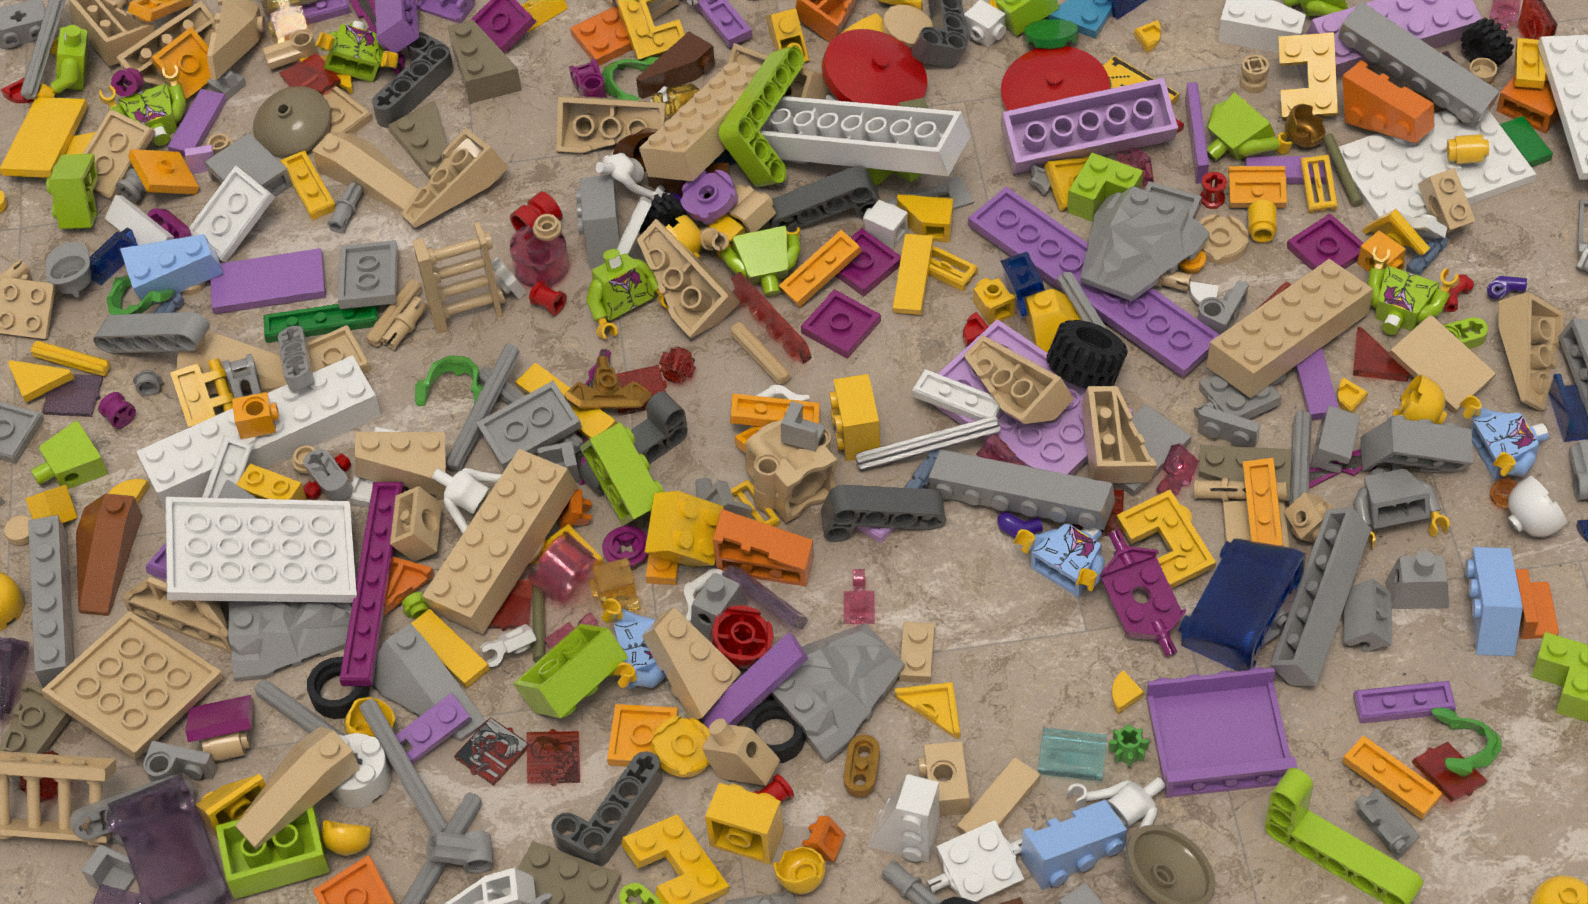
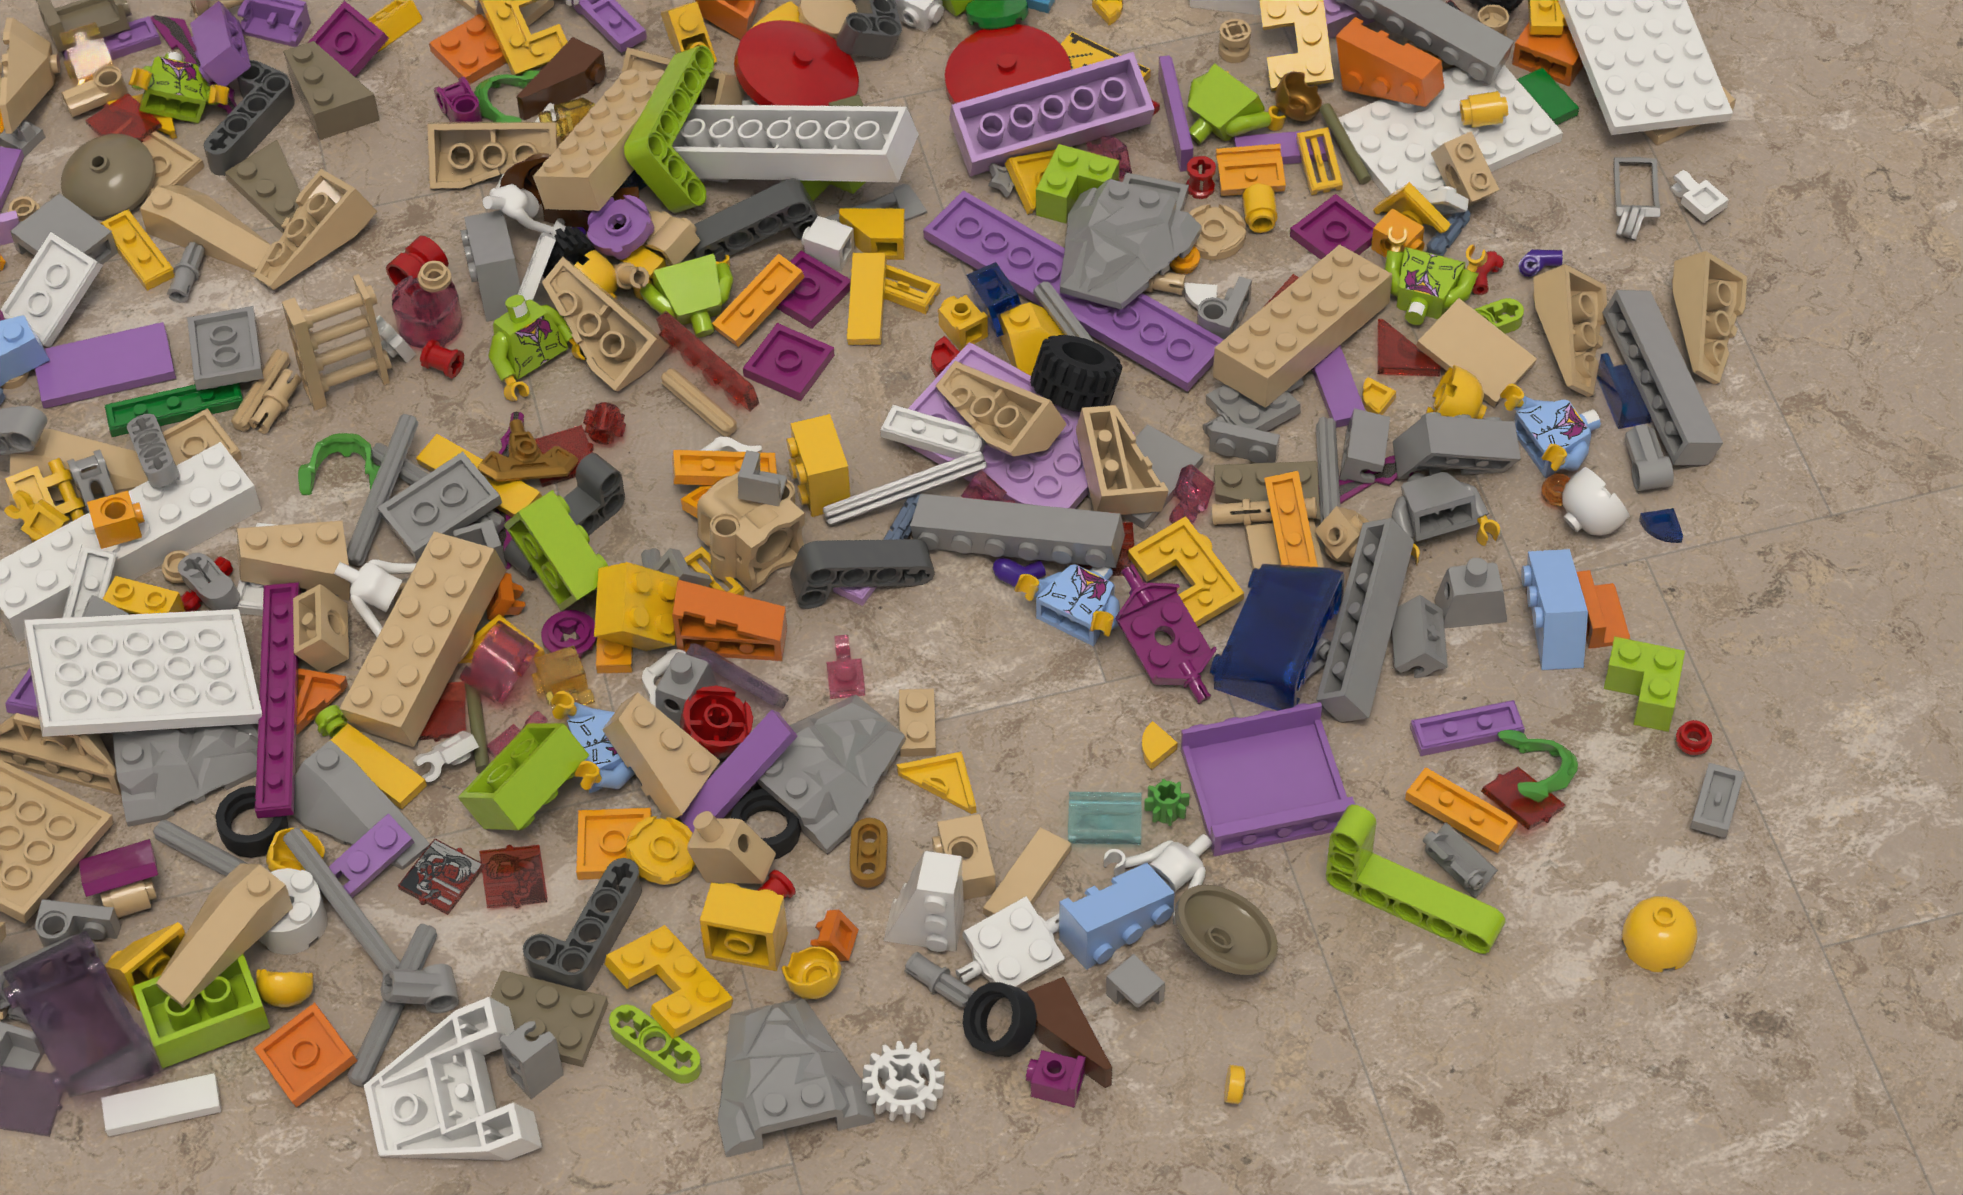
camera: 10 degrees left, 0 degrees up
(194, 408) = (39, 518): none -> yellow plate

